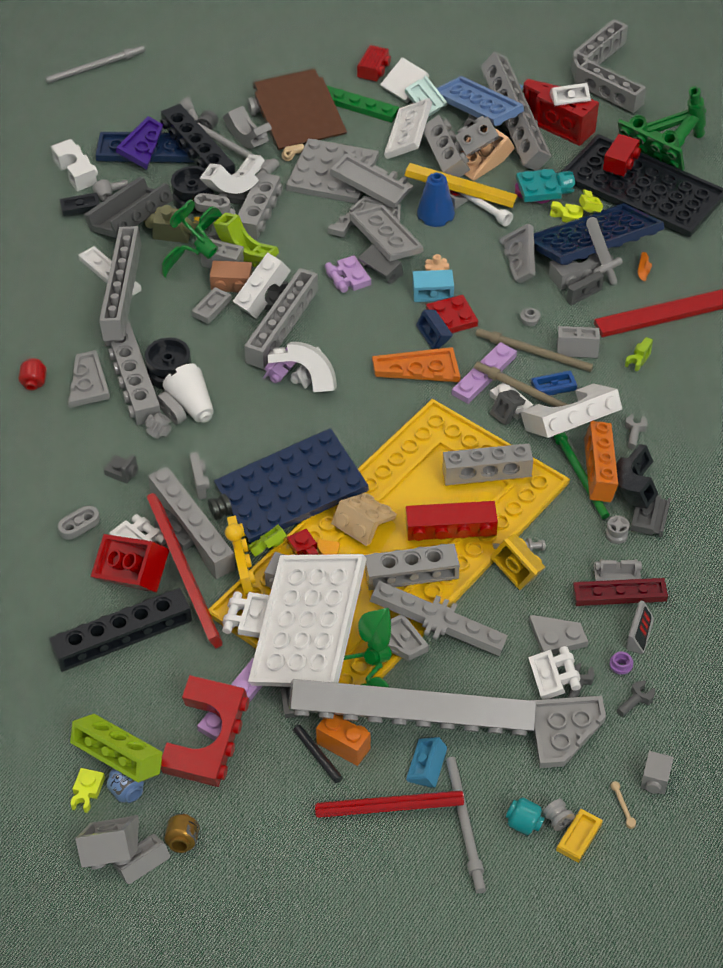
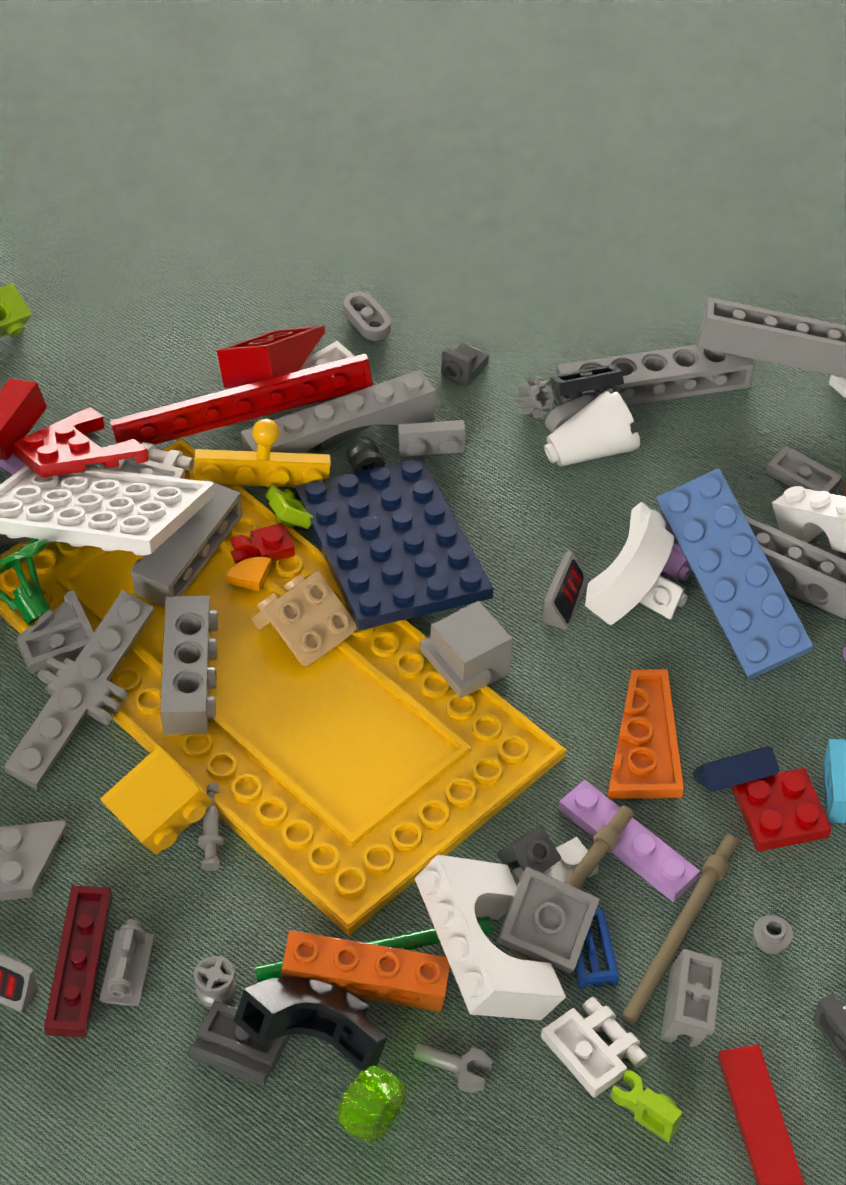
camera: 95 degrees right, 0 degrees up
(32, 374) = (656, 271): red head -> none
(88, 380) = (638, 333): light grey wing -> none
(120, 629) = (166, 339): black brick -> none
(157, 389) = (597, 379): none -> black plate
(164, 357) = (662, 408): black wheel -> none
(242, 660) = (66, 449): none -> red wing
(305, 323) = (734, 574): none -> medium blue plate
(317, 406) = (564, 592): none -> slope
(376, 437) = (469, 649): none -> light grey plate
(451, 520) = (268, 728): red brick -> none
(487, 464) = (380, 792): light grey brick -> none
(552, 389) = (548, 920): none -> light grey plate
(617, 377) = (585, 1053): none -> white plate
(674, 451) = (371, 1103): none -> clear neon green gear

